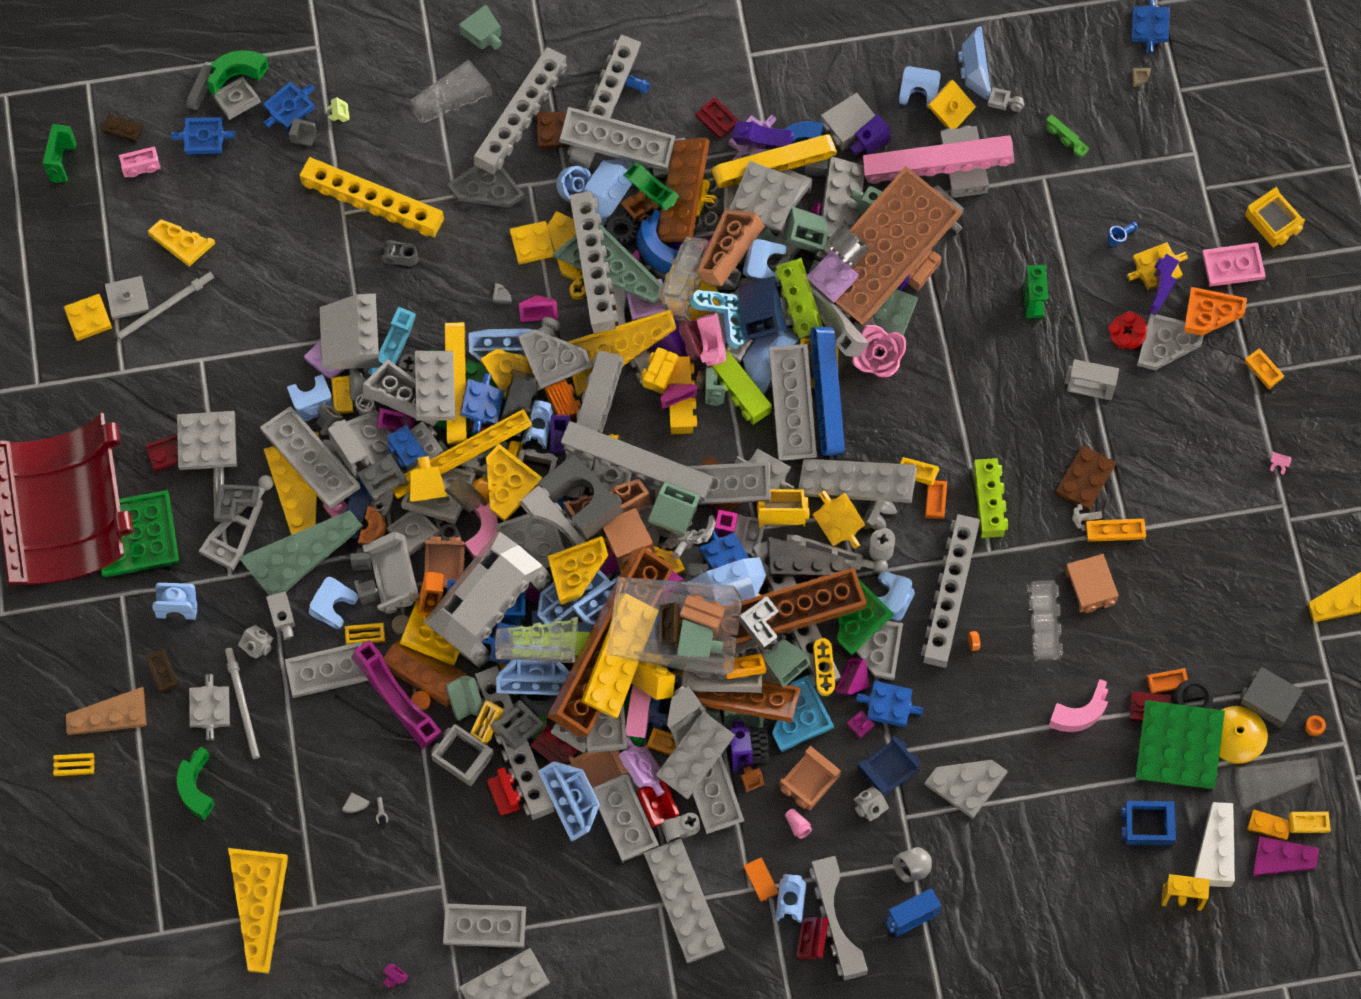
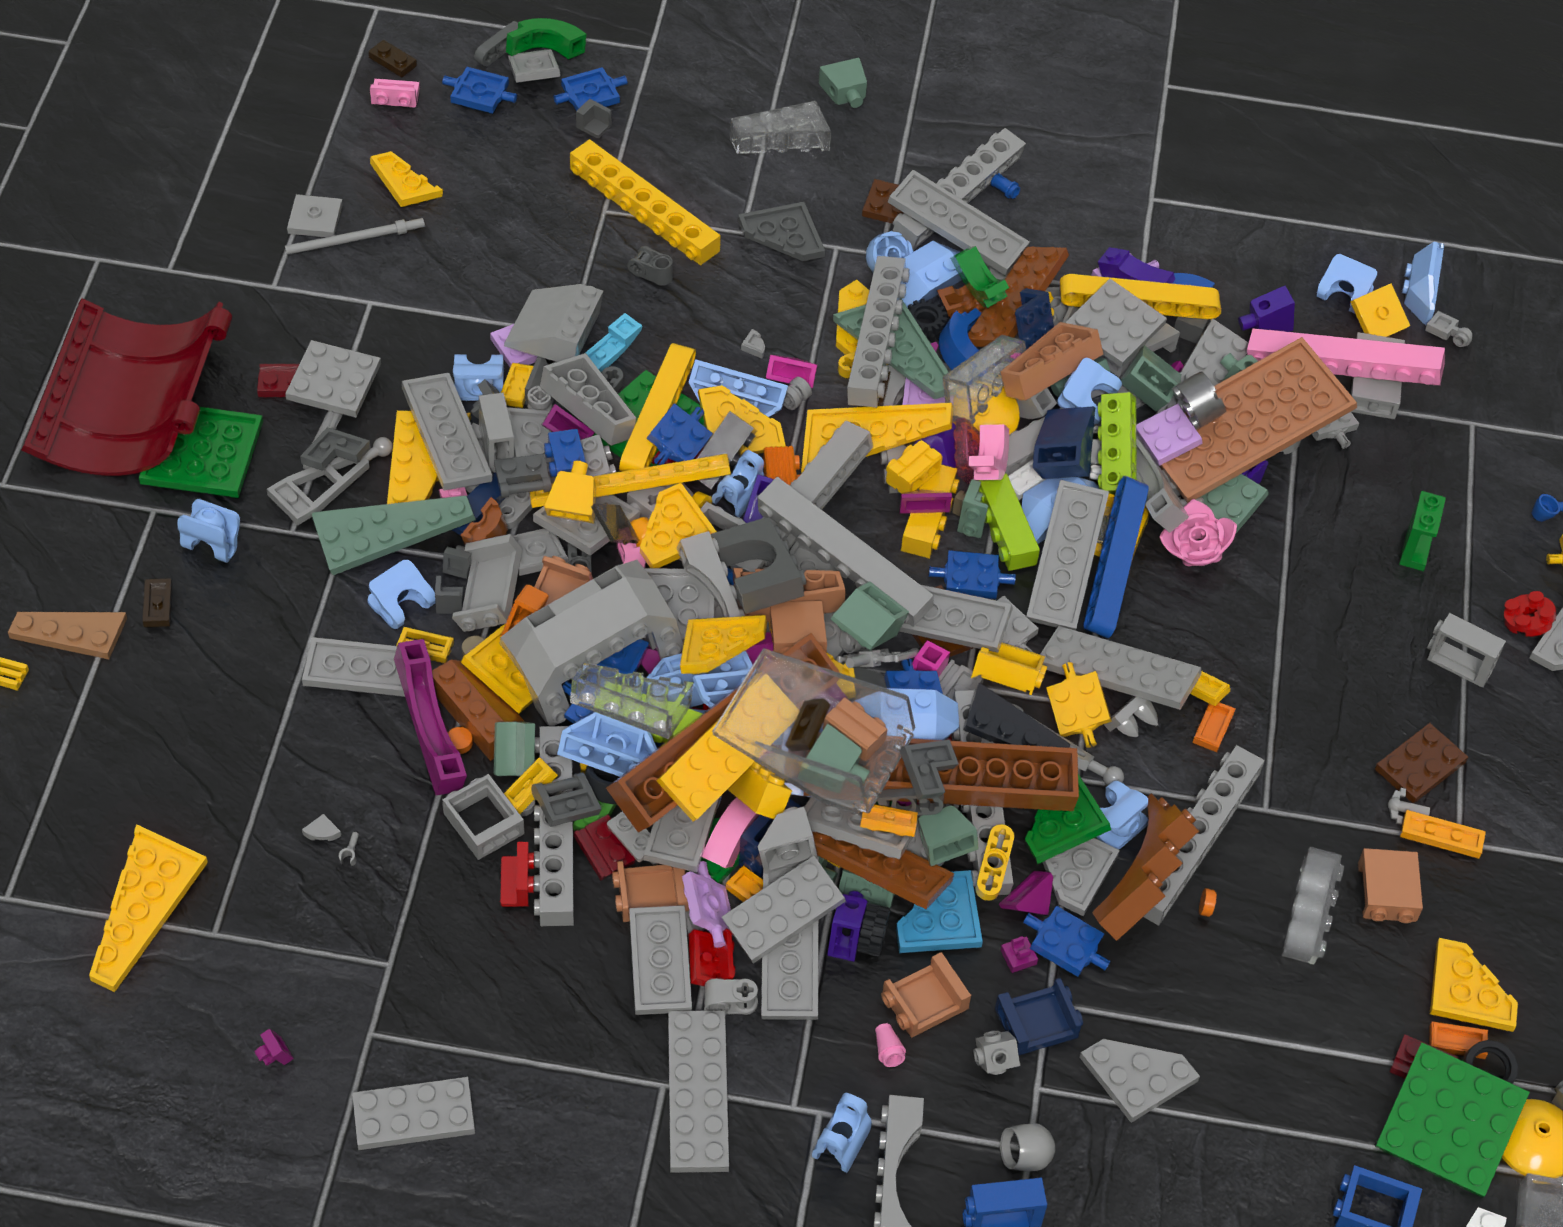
camera: 15 degrees right, 15 degrees down
(60, 138) = (311, 44): green panel -> none
(88, 317) = (260, 221): yellow plate -> none
(187, 774) = (123, 734): green arch -> none
(209, 707) = (194, 661): light grey plate -> none
(233, 668) = (245, 629): light grey bar -> none
(256, 641) = (286, 605): light grey brick -> none
(280, 607) = (332, 583): light grey torso -> none
(339, 110) = (645, 110): yellowish green tile -> none
(434, 385) = (629, 395): light grey plate -> none
(484, 925) = (420, 1029): light grey plate -> none
(491, 161) = (854, 168): light grey brick -> none
(532, 242) = (813, 303): yellow plate -> none
(552, 357) = (787, 416): light grey plate -> none
(571, 797) = (599, 906): light blue wedge -> none
(706, 215) = (1034, 316): none -> dark blue bracket
(716, 118) = (1085, 244): dark red plate -> none
(728, 310) = (1026, 426): medium azure beam -> none
(728, 437) = (972, 574): none -> blue plate
(752, 778) = (848, 969): dark orange tile -> none
(761, 879) = (812, 1099): orange tile -> none
(812, 938) = (853, 1194): dark red plate -> none
(845, 120) = (1241, 287): light grey brick -> none
(882, 544) = (1125, 747): light grey piece -> none
(924, 270) = (1286, 468): nougat brick -> none
(932, 629) = (1157, 859): none -> dark orange arch
(989, 498) = (1285, 744): lime brick -> none
(1066, 136) = (1514, 385): bright green hinge -> none
(1078, 719) = (1322, 1043): bright pink arch -> none
(1164, 642) = (1469, 990): none -> yellow plate

